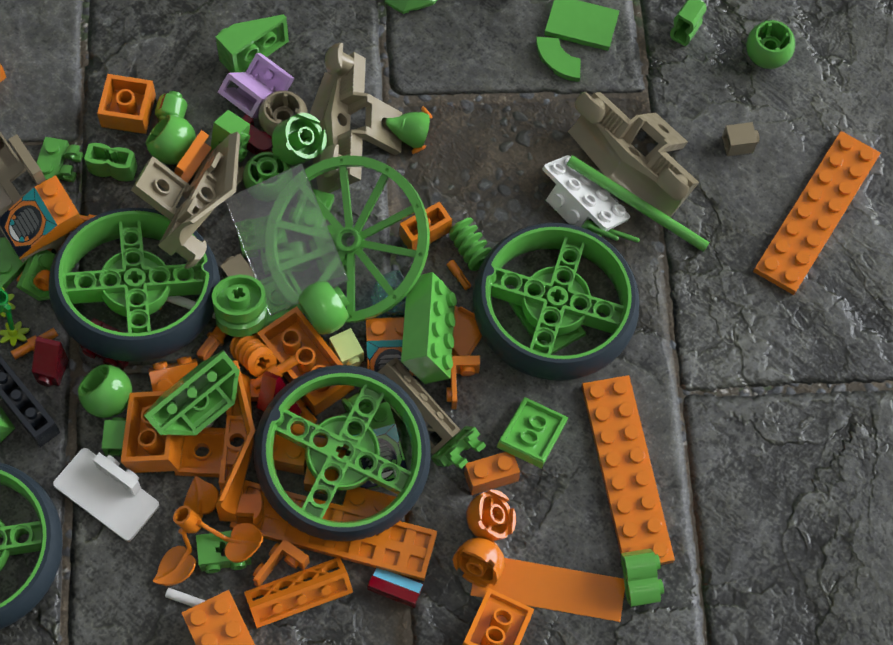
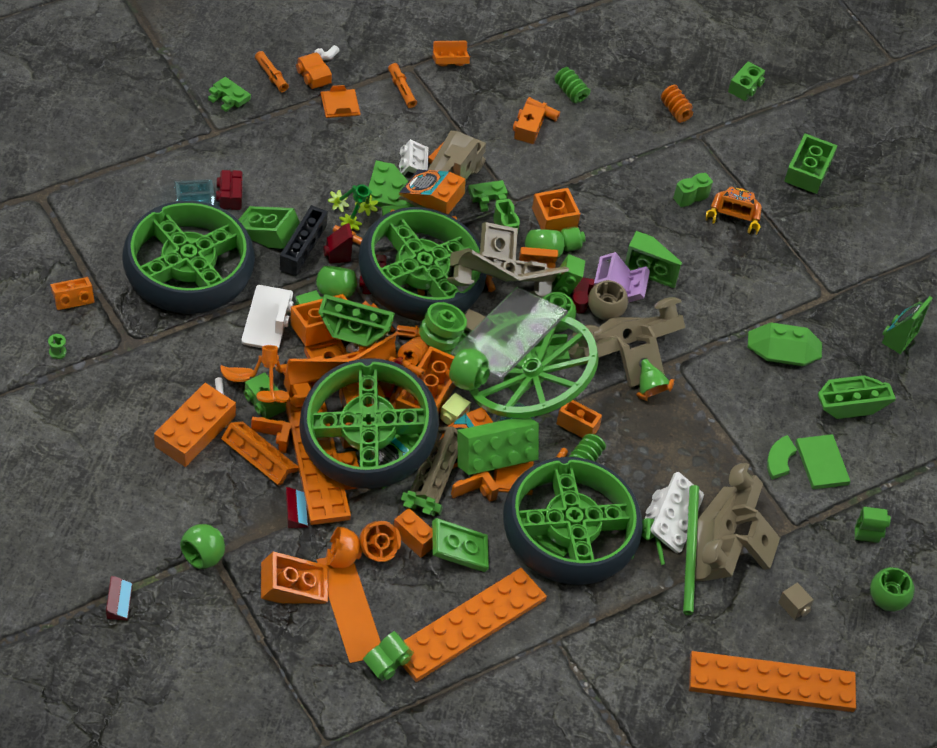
camera: 60 degrees right, 15 degrees down
(298, 139) = (590, 297): bright green brick -> none

